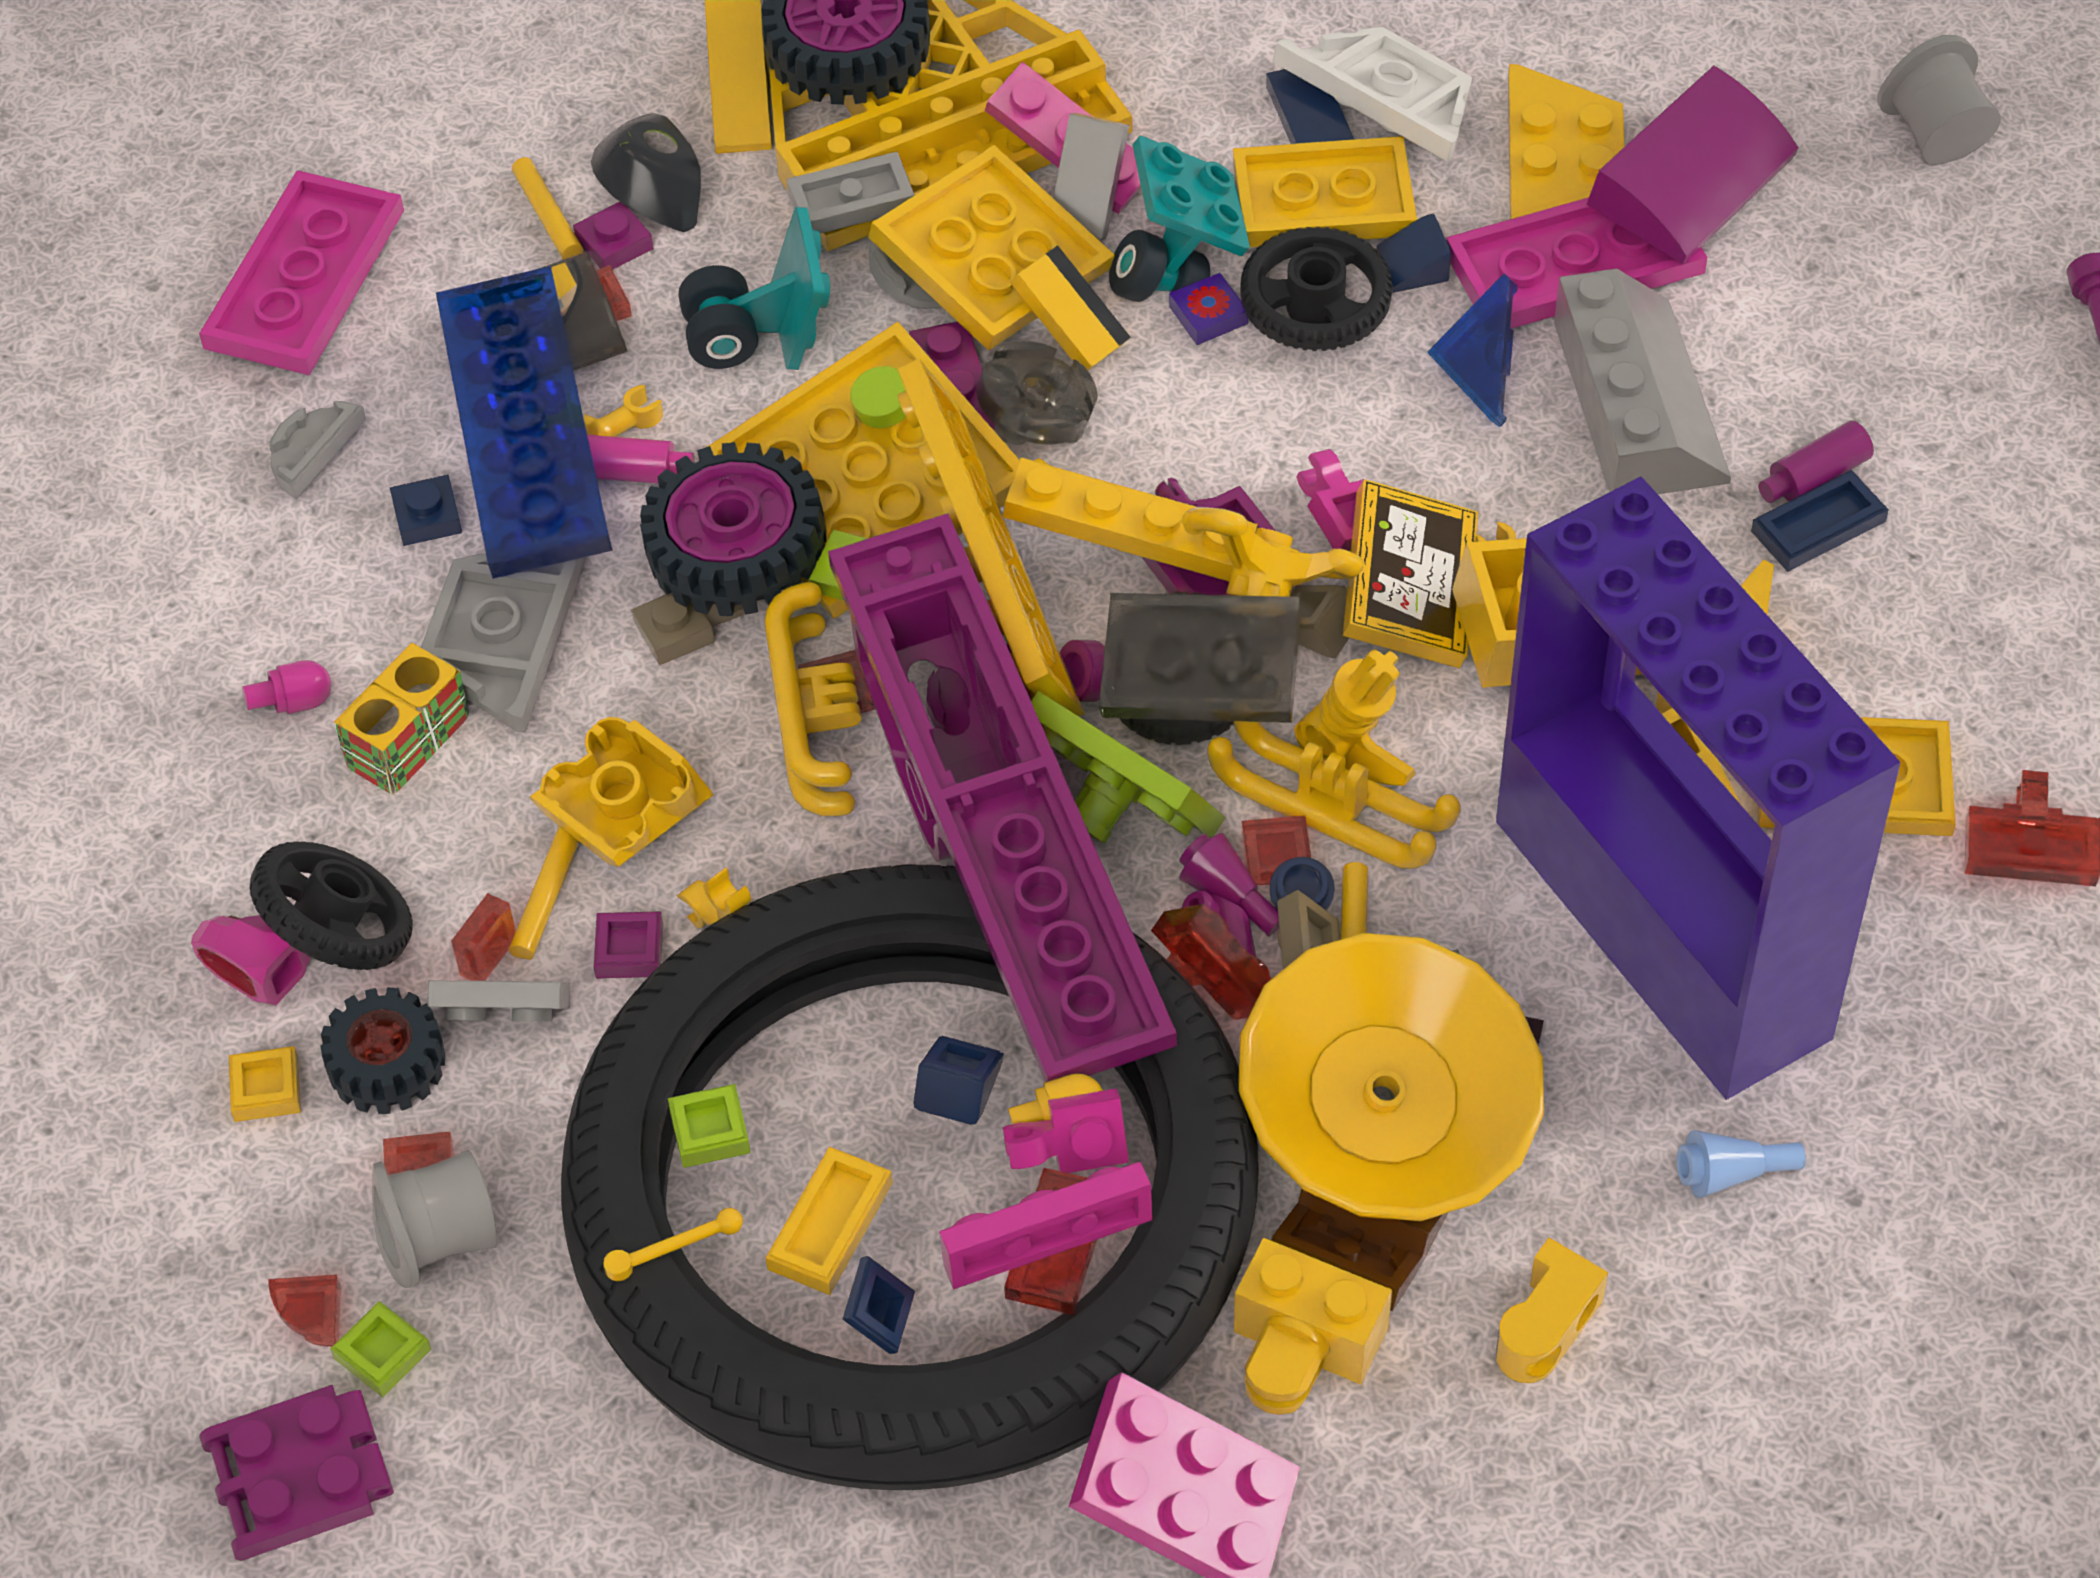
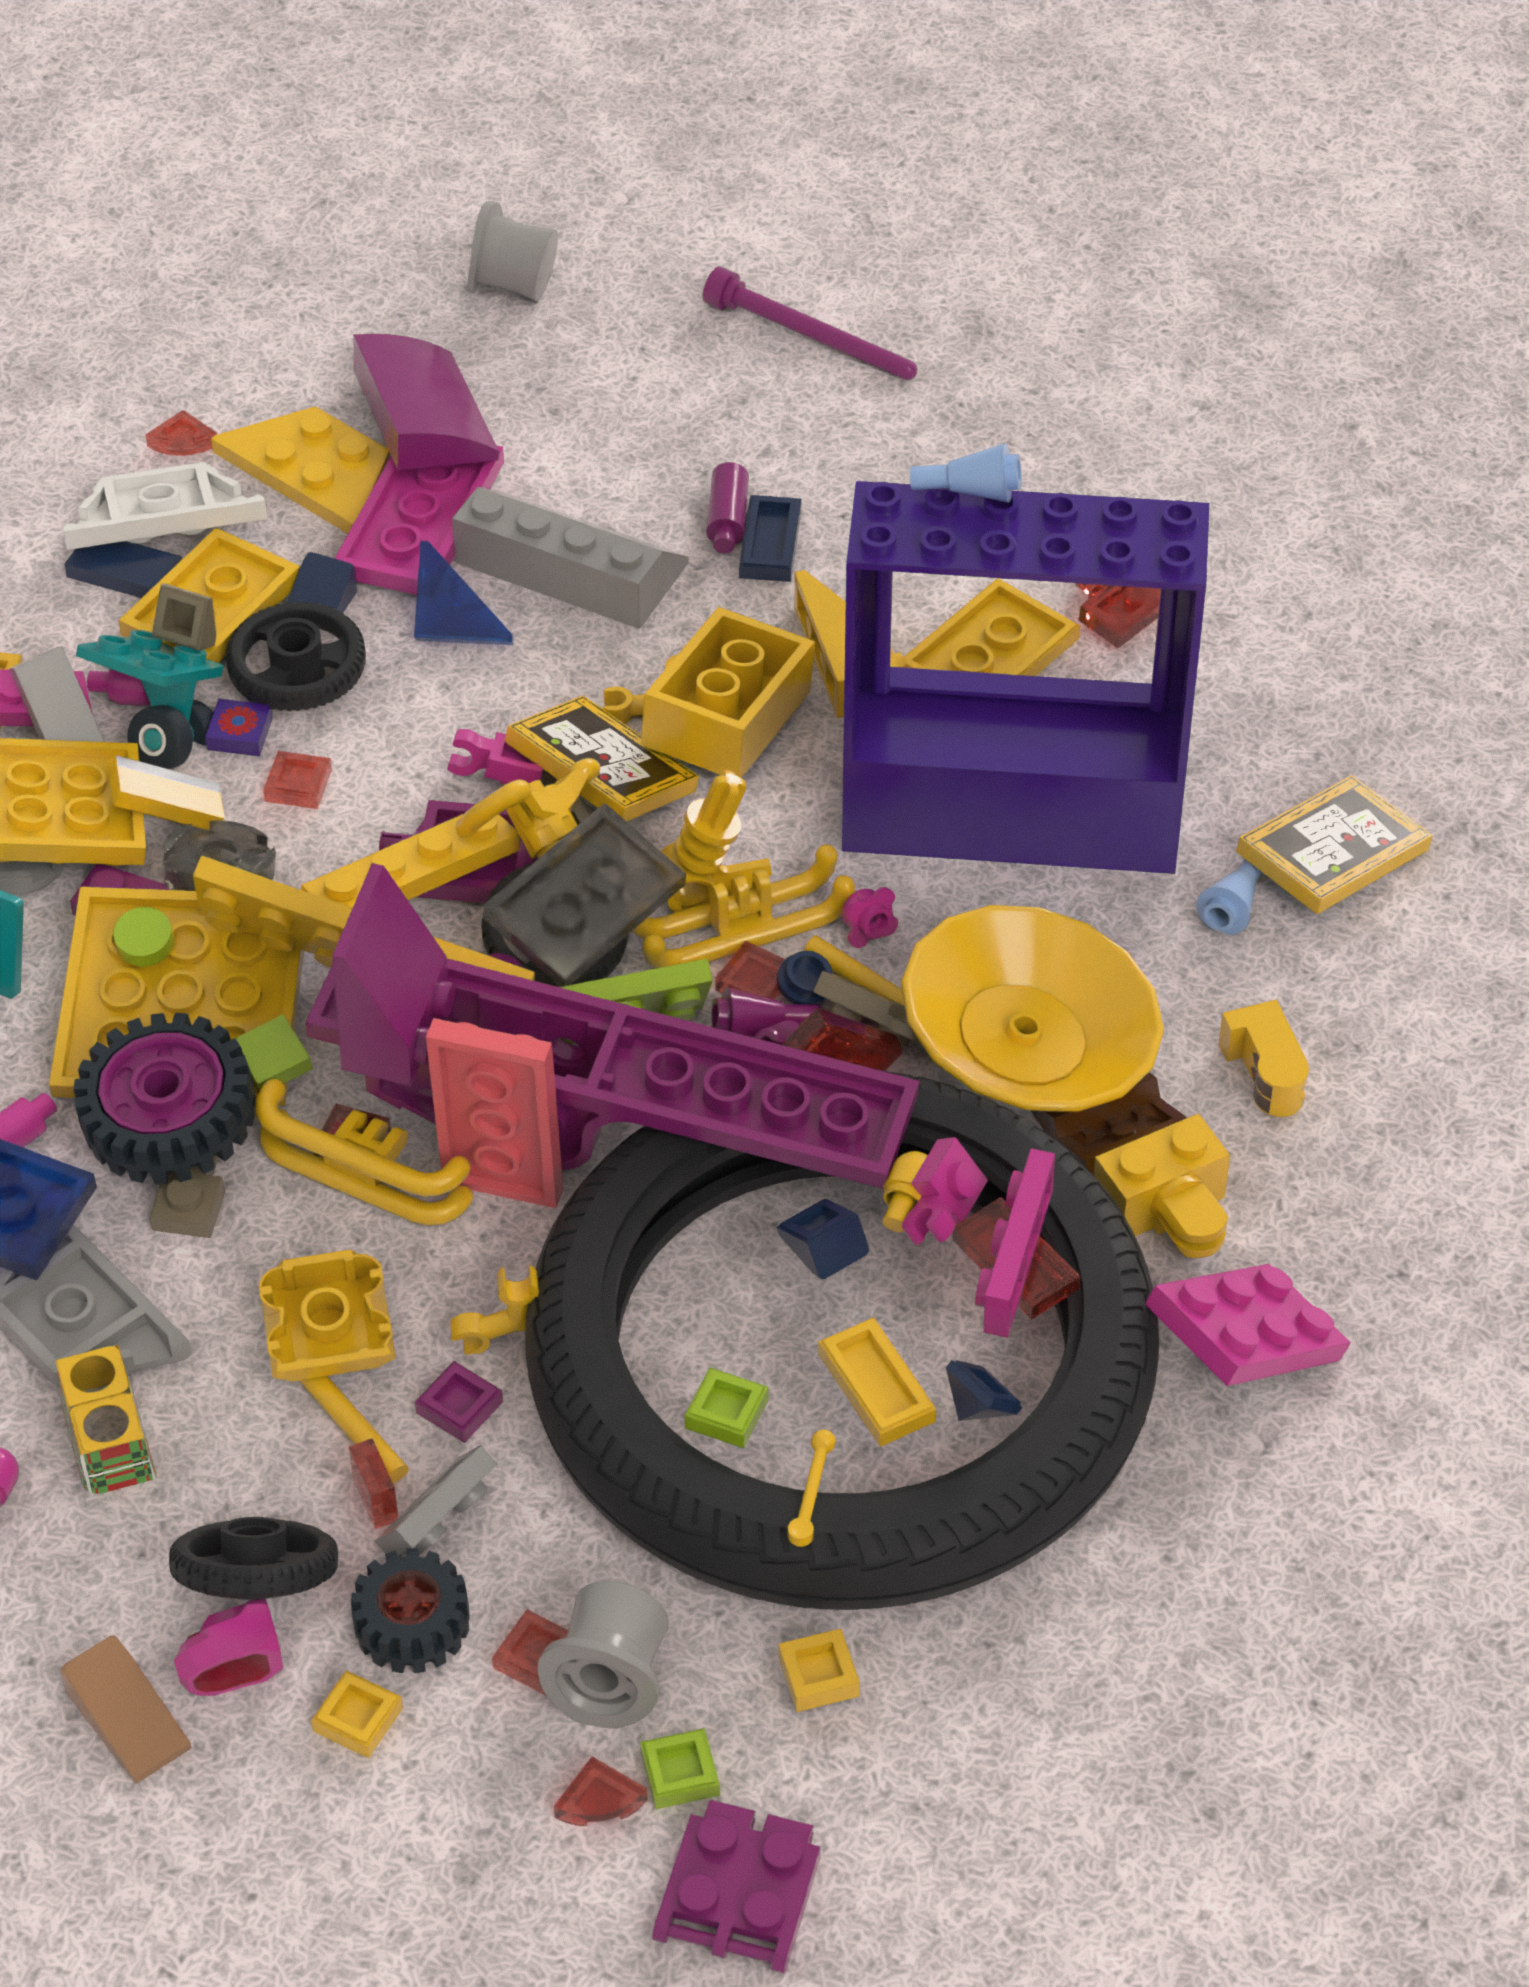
camera: 55 degrees left, 5 degrees down
(149, 923) = (123, 1708): none -> medium nougat slope
(549, 1386) = (819, 1670): none -> yellow plate
(866, 561) = (387, 983): none -> magenta slope
(878, 746) = (497, 1110): none -> coral plate
(1190, 386) = (297, 779): none -> clear red tile
(1251, 185) = (184, 618): none -> dark tan slope
(1420, 888) = (869, 915): none -> dark pink plate
(1498, 42) = (180, 433): none -> clear red tile
(1723, 562) = (981, 474): none -> light blue cone
(1879, 1206) = (1334, 844): none -> tile

